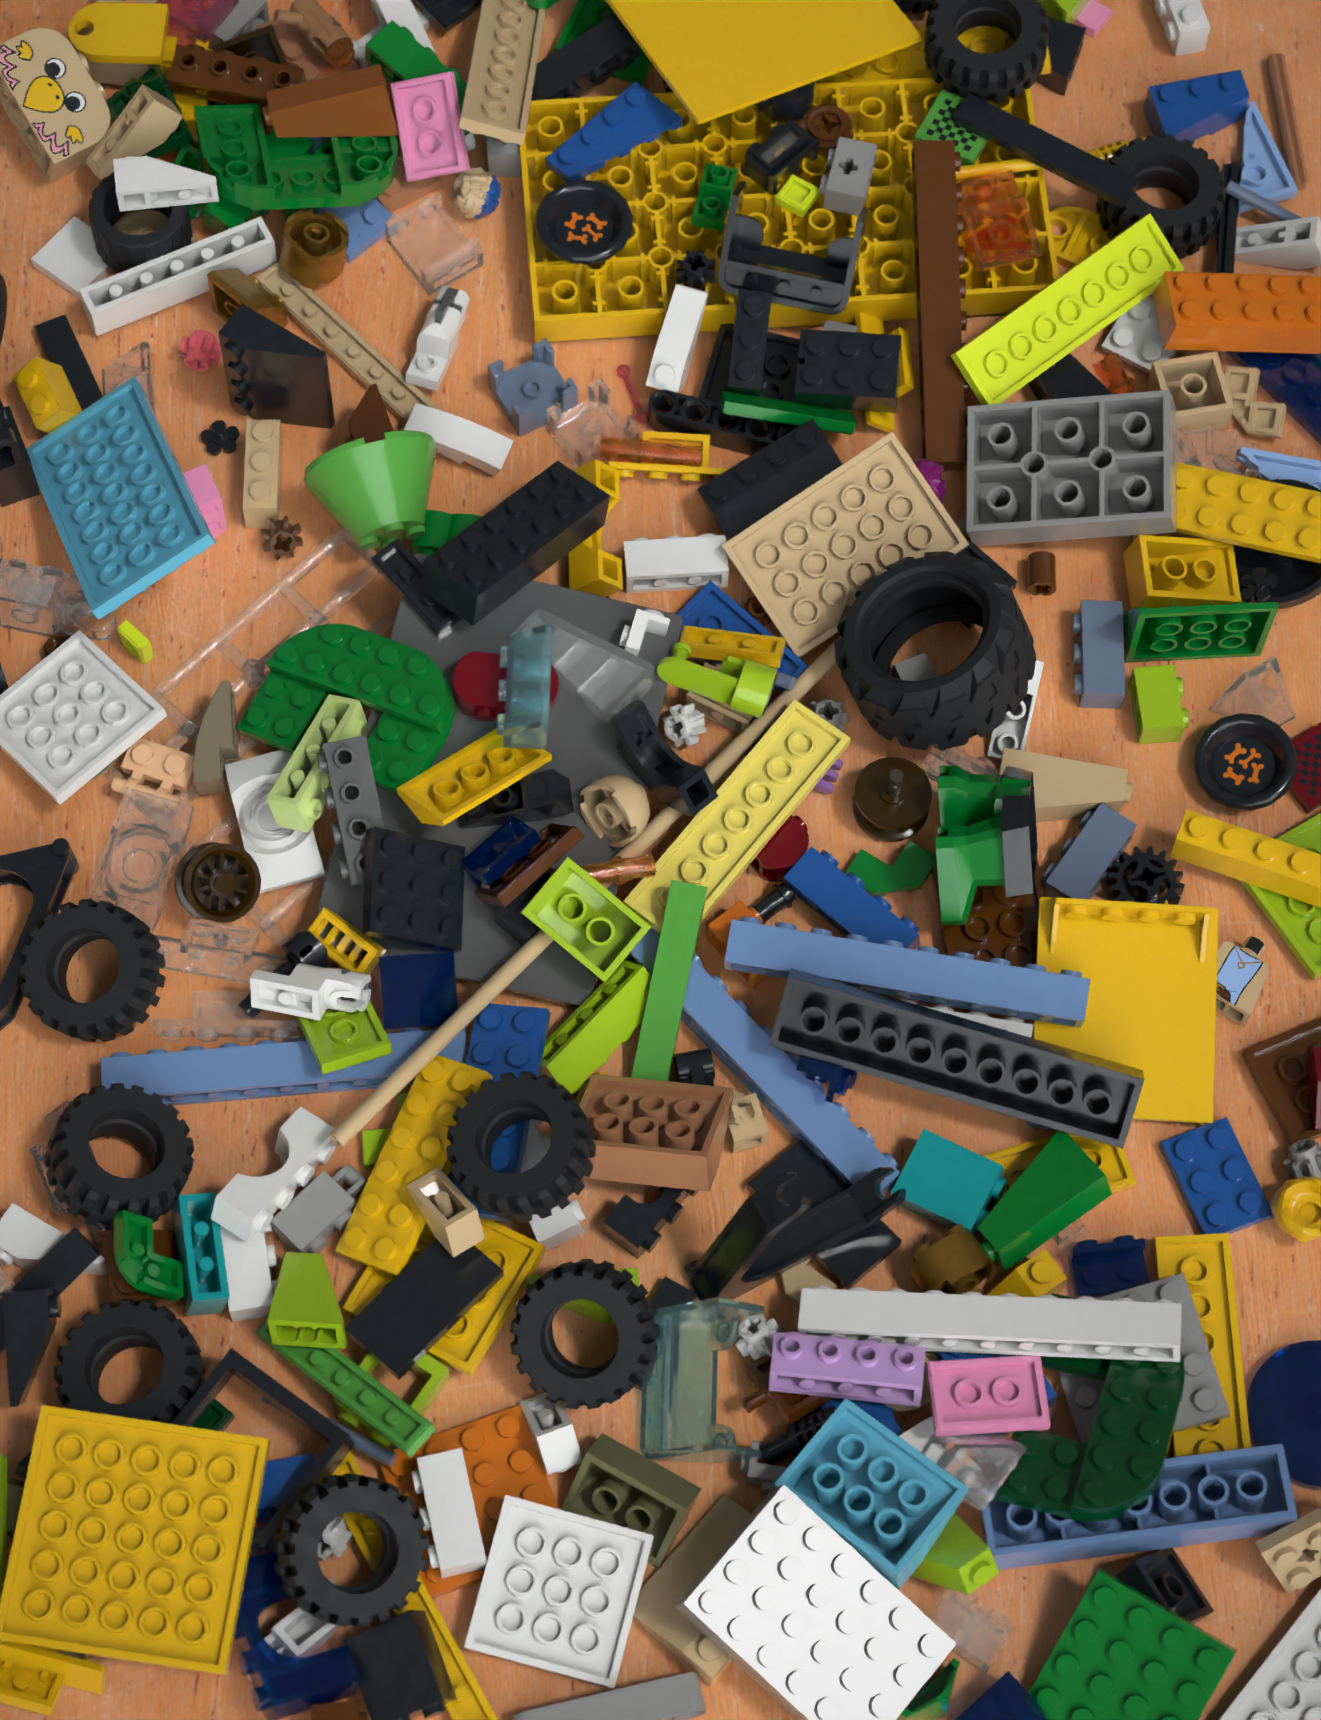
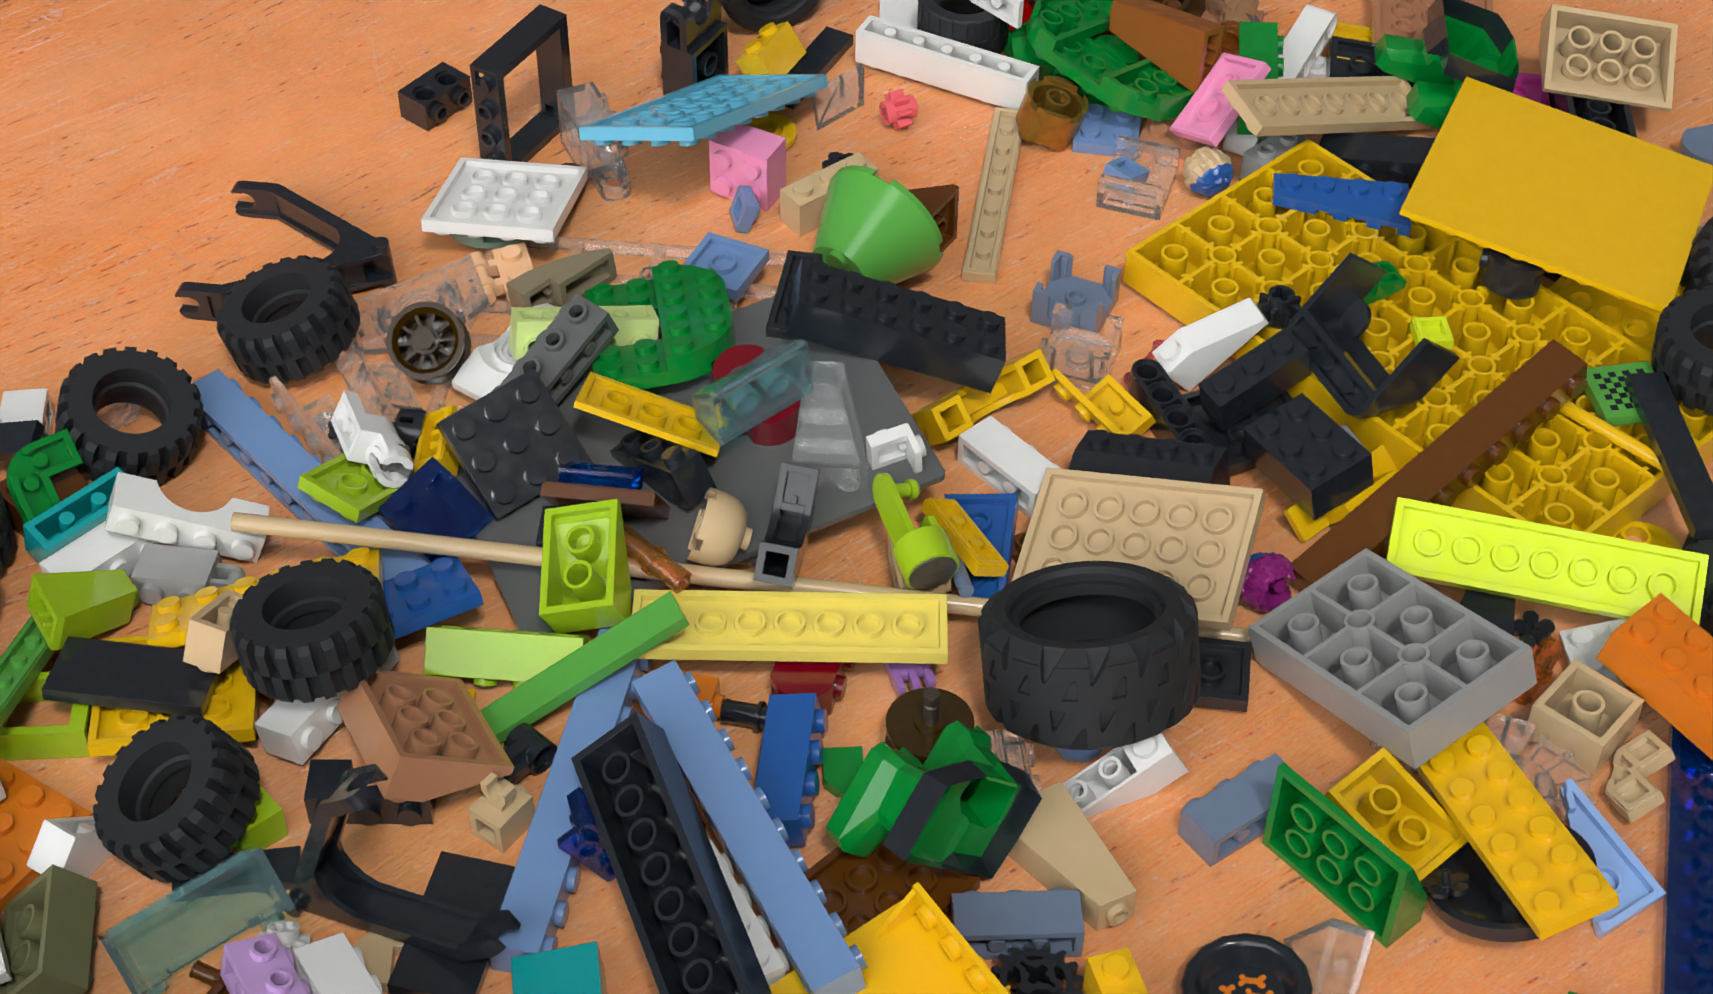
camera: 55 degrees right, 20 degrees down
(135, 642) = (612, 207): neon yellow tile -> none
(226, 549) = (744, 209): none -> medium blue plate
(233, 288) = (965, 108): pearl gold slope -> none
(275, 372) = (901, 119): black slope -> none
(287, 531) = (784, 232): reddish brown gear -> none
(297, 605) = (732, 260): none -> medium blue plate
(424, 248) = (1126, 168): none -> medium blue plate
(438, 338) = (1057, 219): white plate -> none
(461, 438) = (979, 275): white slope -> none
(584, 222) = (1240, 217): black piece -> none
(656, 452) = (1085, 379): clear orange pin -> none
(684, 725) = (861, 554): white gear -> none
(780, 154) = (1453, 292): black window -> none
(786, 412) = (1218, 435): green tile -> none
(833, 710) = (965, 648): light grey gear -> none
(834, 118) = (1508, 305): reddish brown gear -> none
(849, 175) = (1489, 348): light grey brick -> none
(996, 222) = (1567, 460): clear orange slope -> none
(1041, 573) = (1278, 719): reddish brown piece -> none
(1086, 358) = (1531, 629): none -> black plant
(1157, 704) = (1237, 884): lime brick -> none

